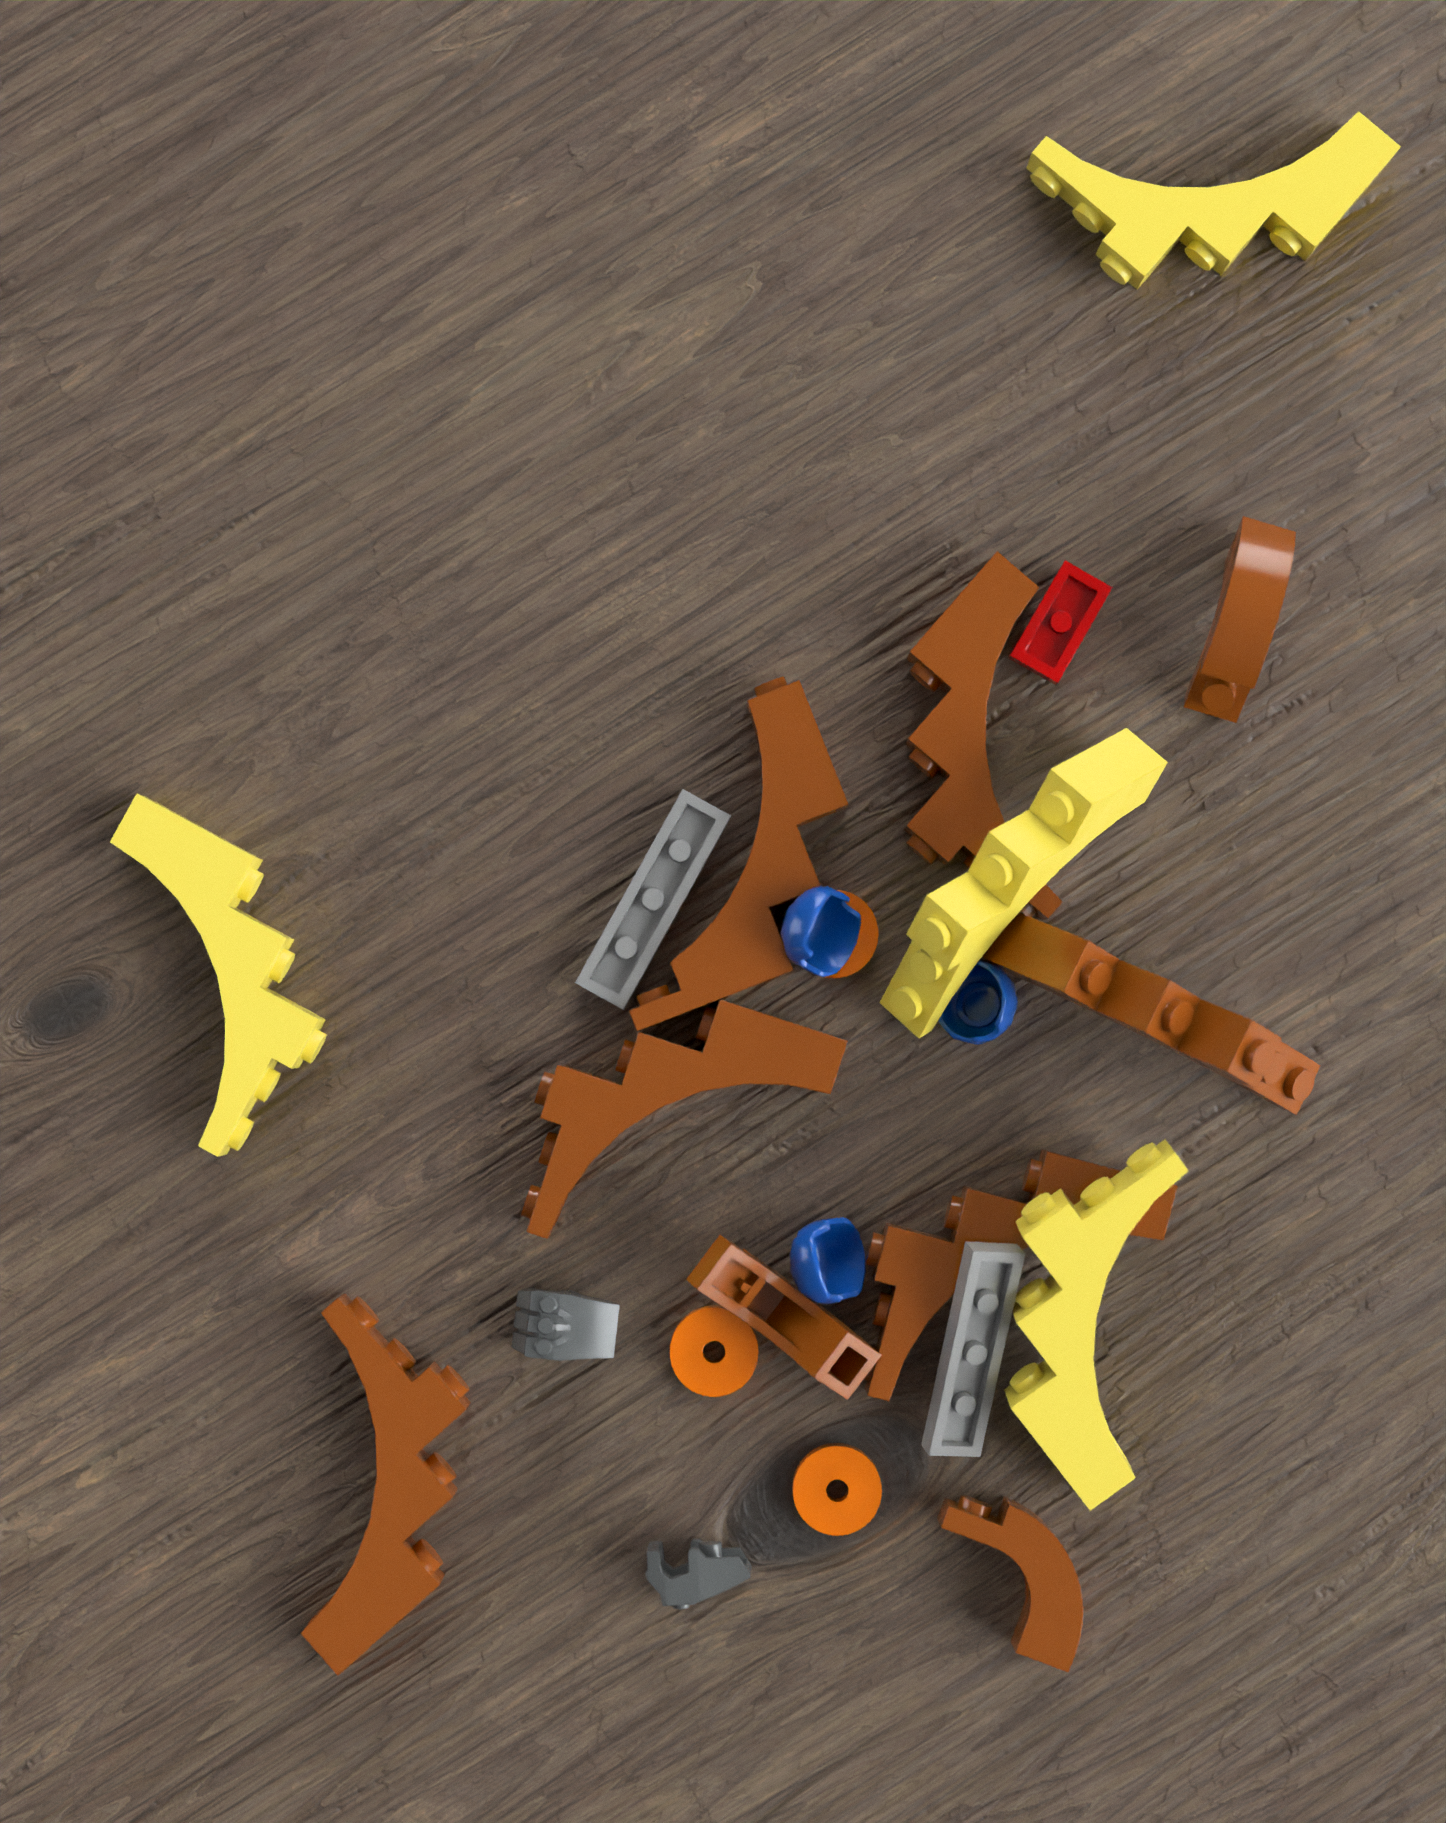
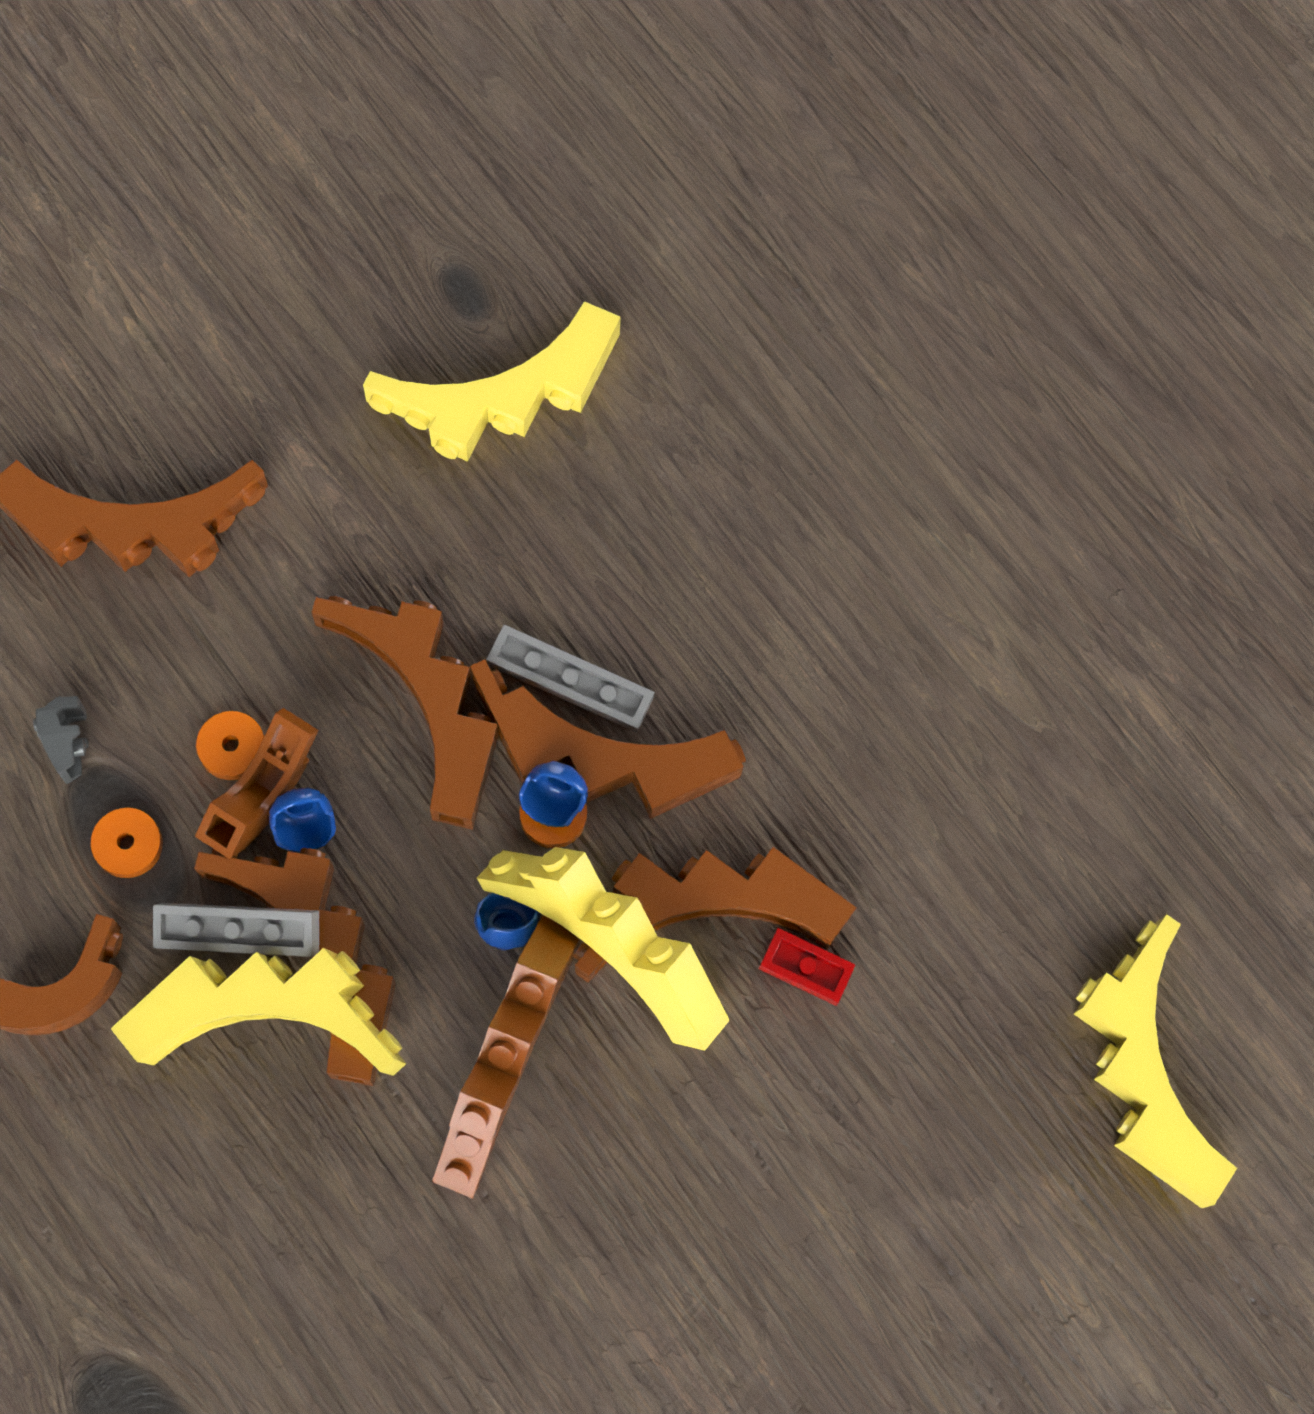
camera: 75 degrees right, 15 degrees down
(564, 1325) = (247, 634): dark grey hand -> none
(1244, 619) = (825, 1103): dark orange arch -> none

